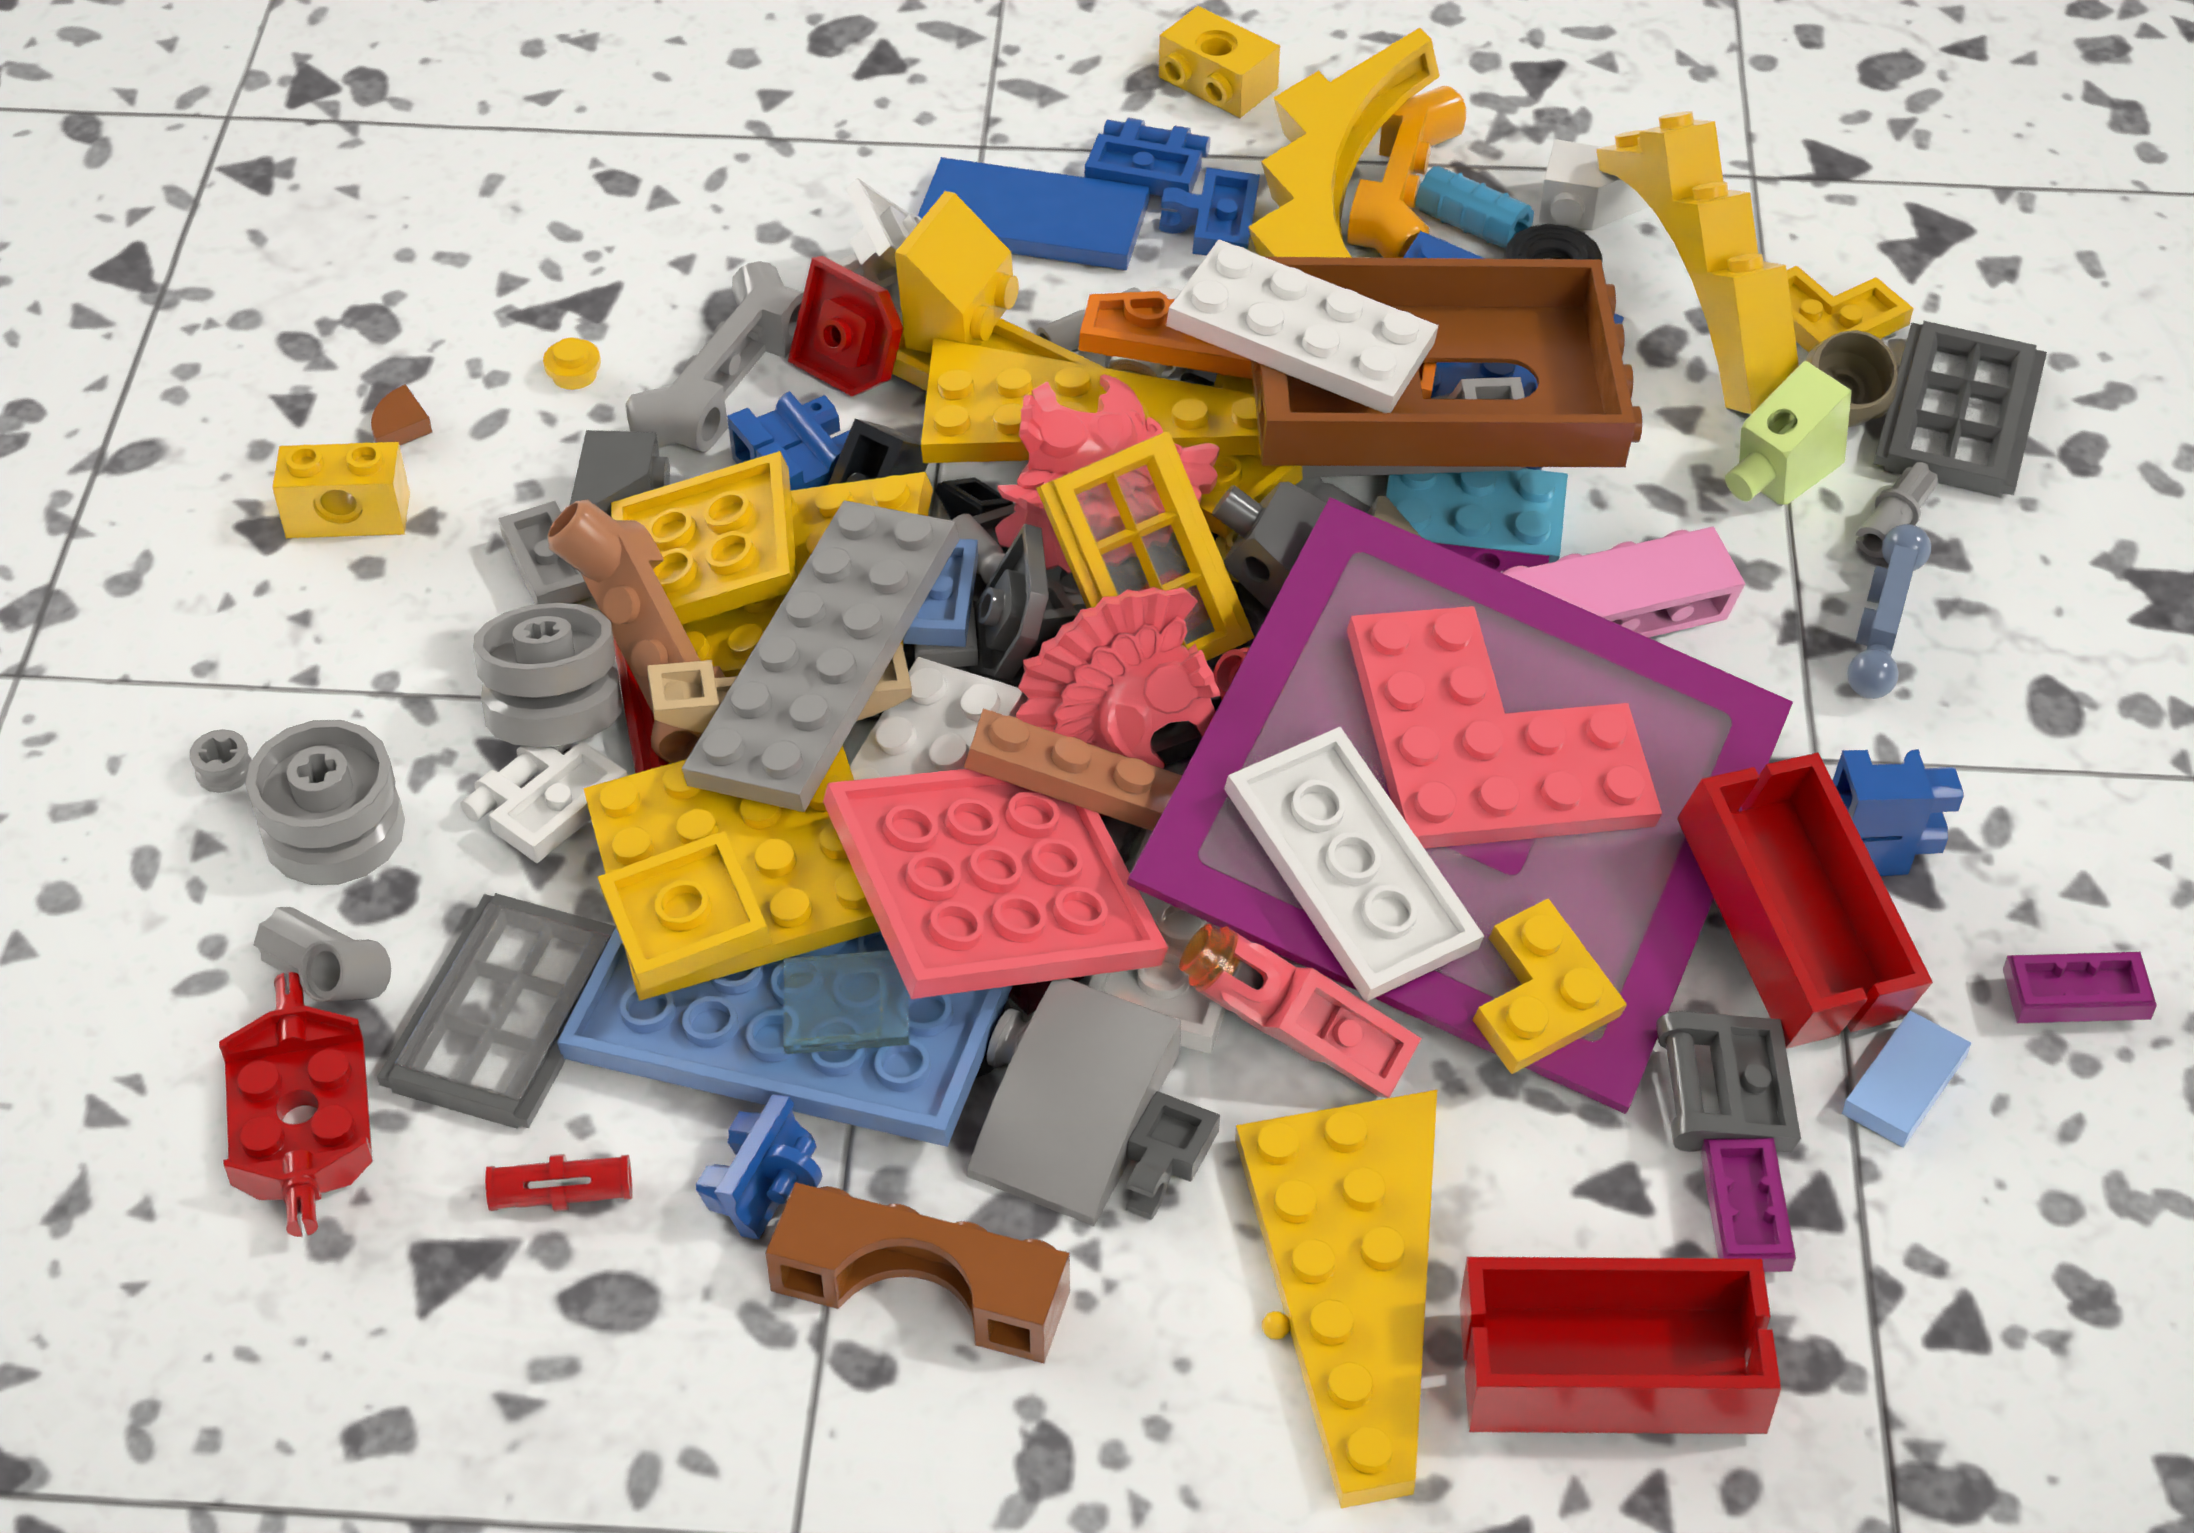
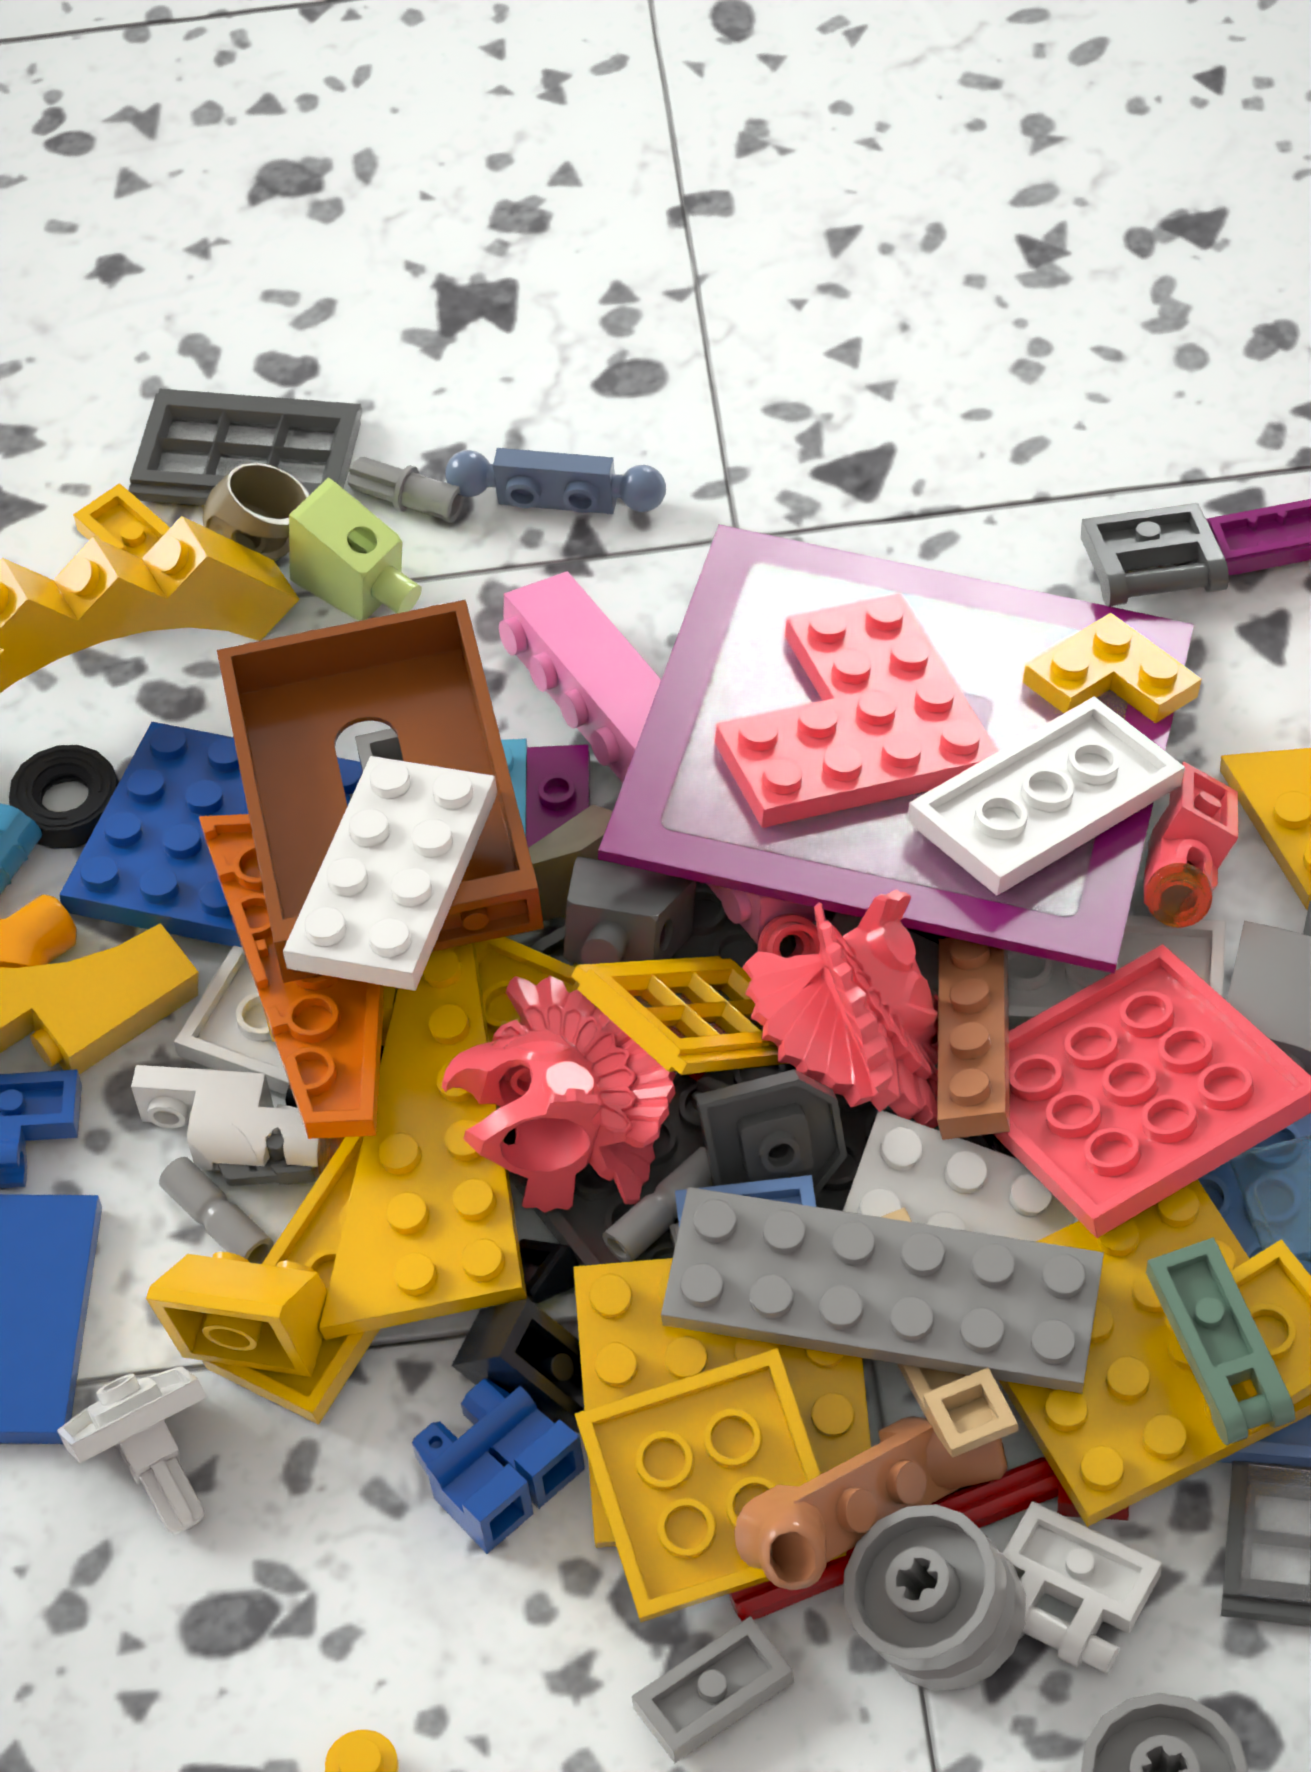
camera: 95 degrees left, 5 degrees up
(618, 467) = (590, 1642): dark grey slope -> none
(666, 844) = (1219, 1339): none -> sand green plate
(694, 405) = (265, 1548): light grey plate -> none
(845, 329) = (298, 1435): red piece -> none
(1803, 899) = (968, 494): red piece -> none
(1898, 806) = (838, 457): blue hips -> none
(1906, 1078) = (1099, 449): light blue tile -> none
(2079, 987) = (974, 341): magenta plate -> none

